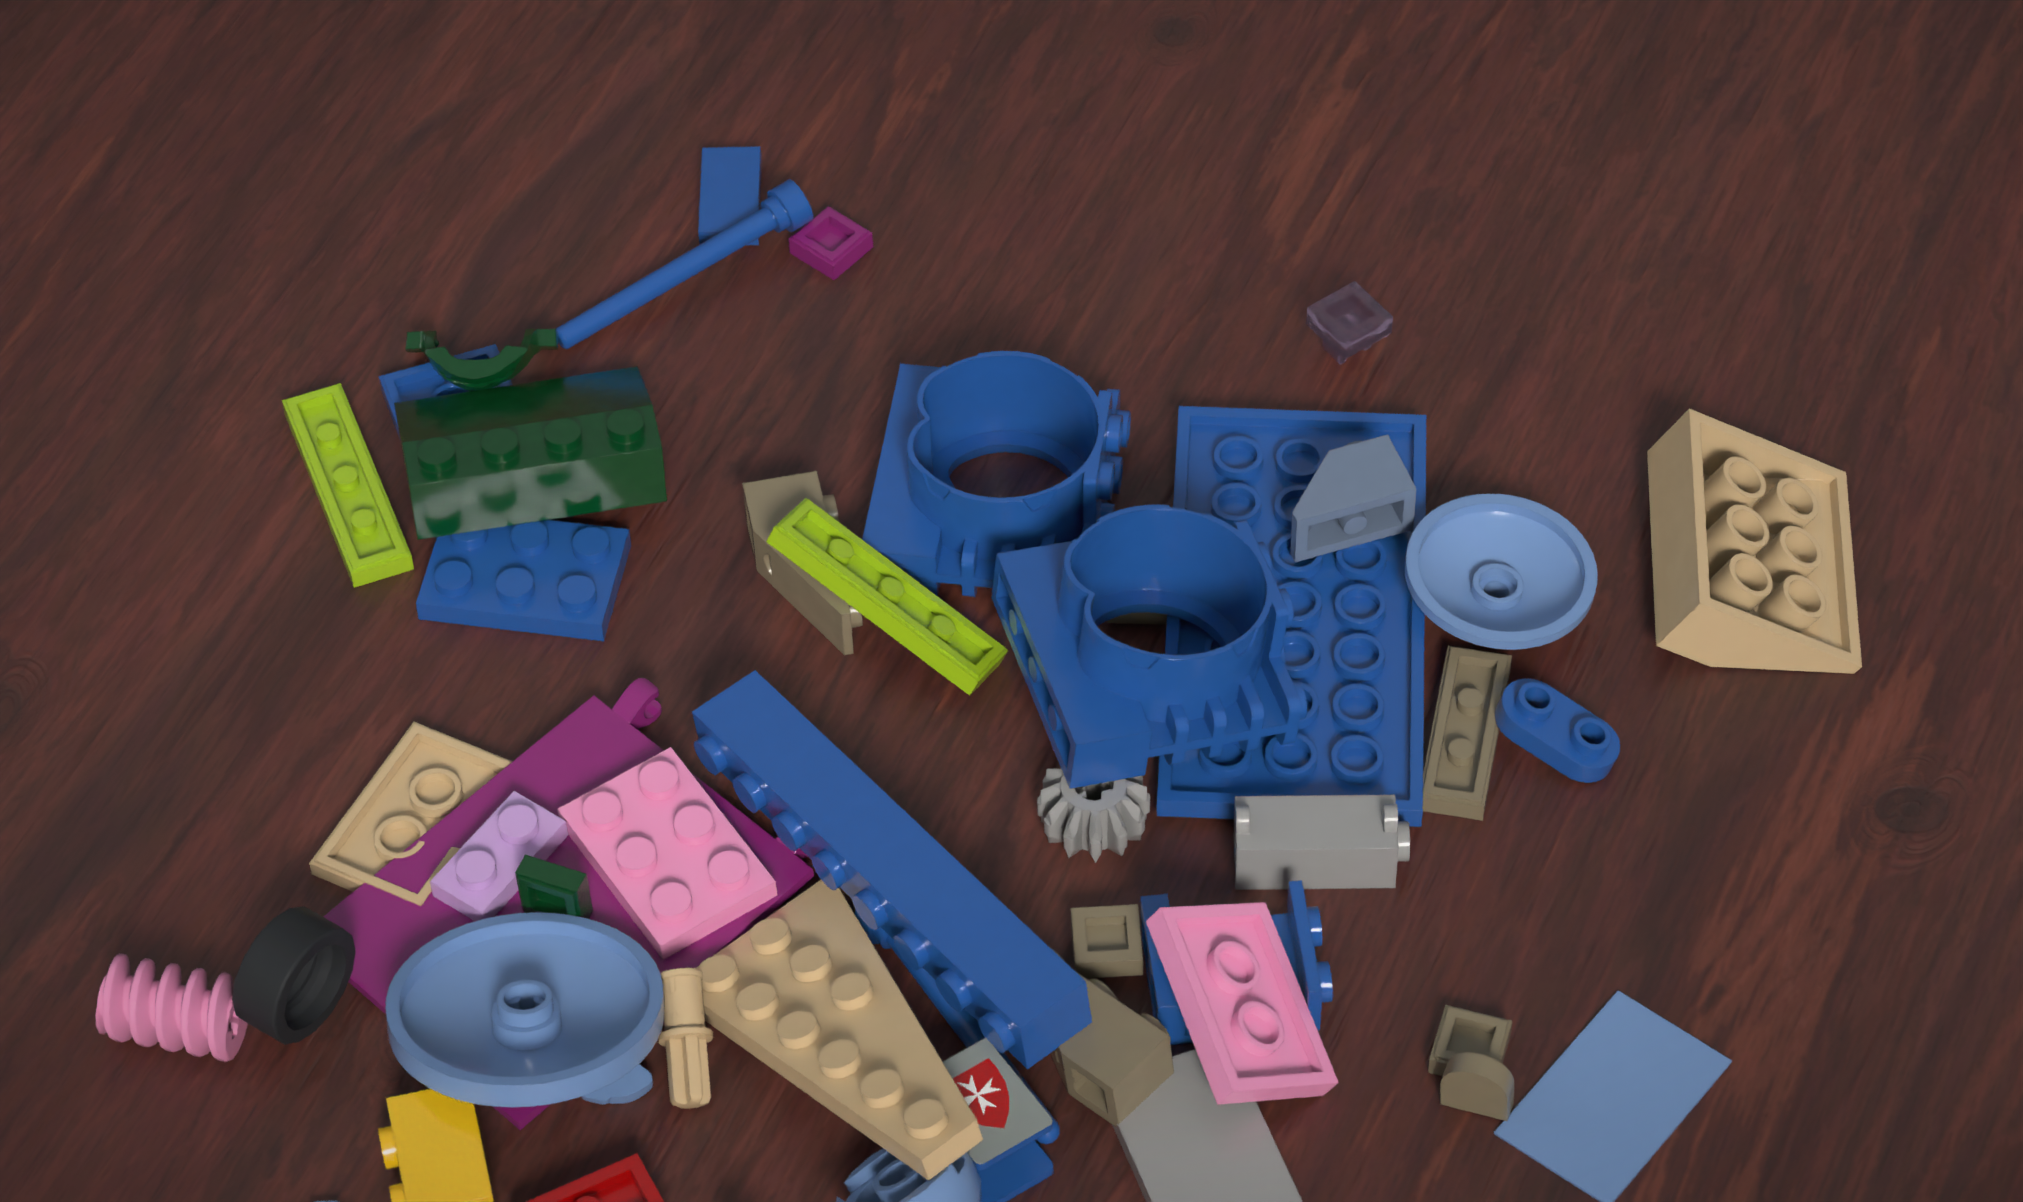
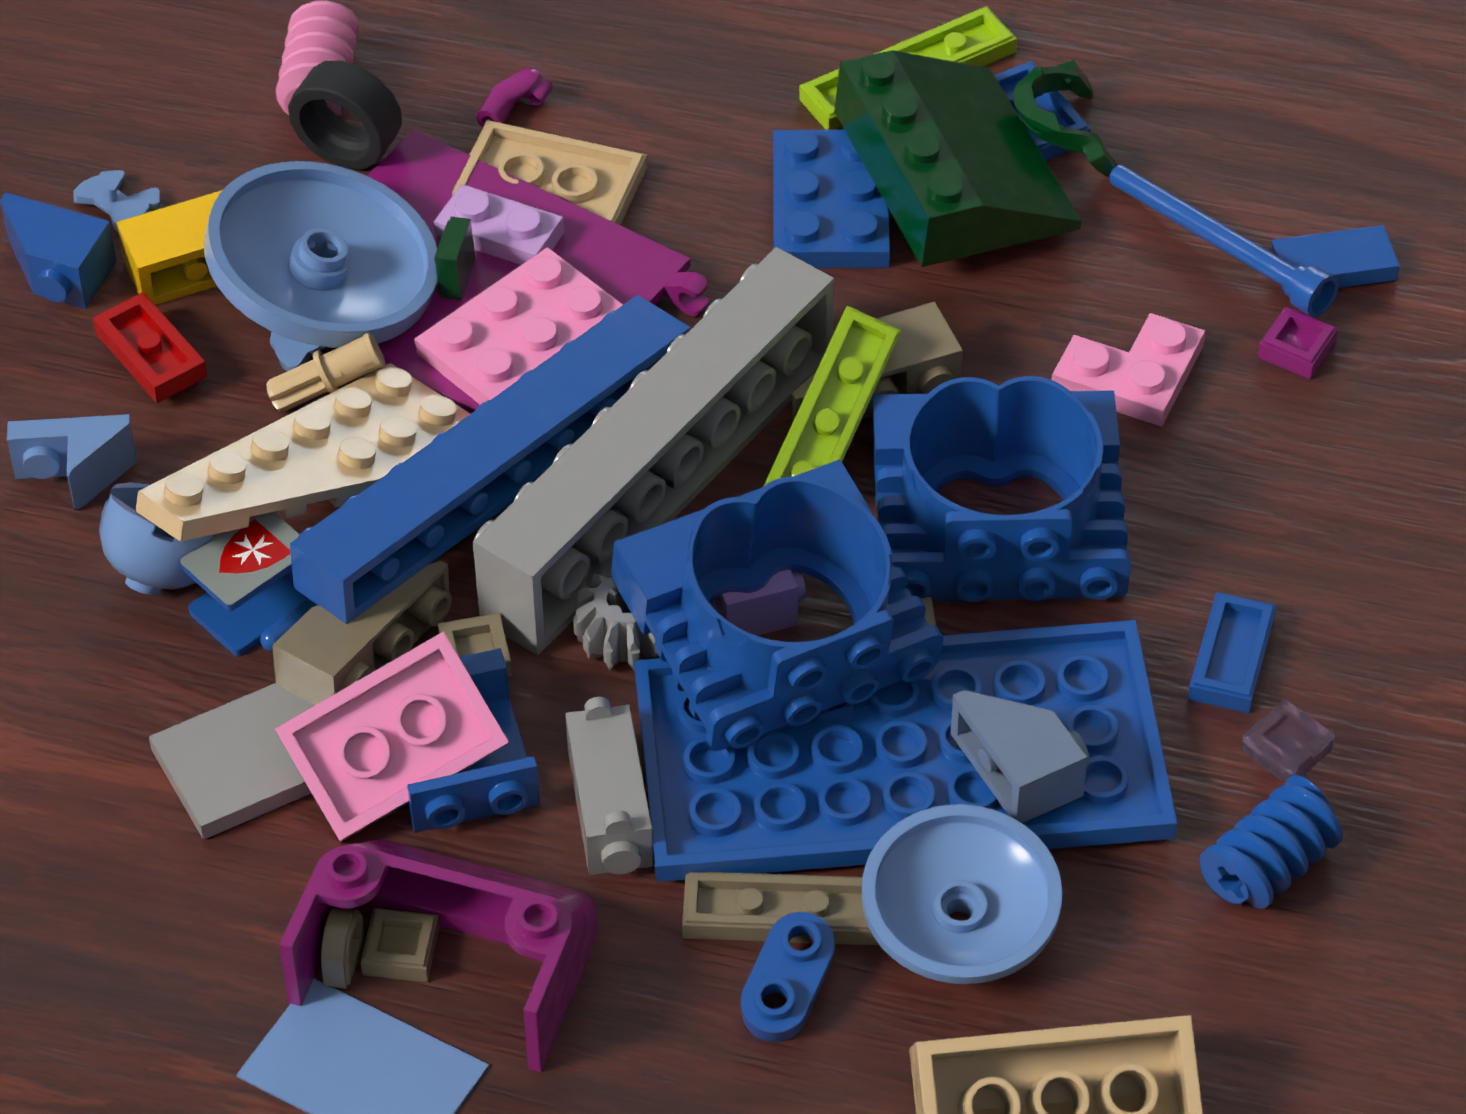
camera: 80 degrees right, 0 degrees up
(270, 835) = (508, 92): none -> magenta arm
(846, 367) = (1143, 379): none -> bright pink plate
(905, 733) = (654, 446): none -> light grey brick
(1211, 355) = (1232, 652): none -> blue tile
(1421, 1042) = (512, 909): none -> magenta windscreen
(1460, 351) = (1272, 845): none -> blue piece

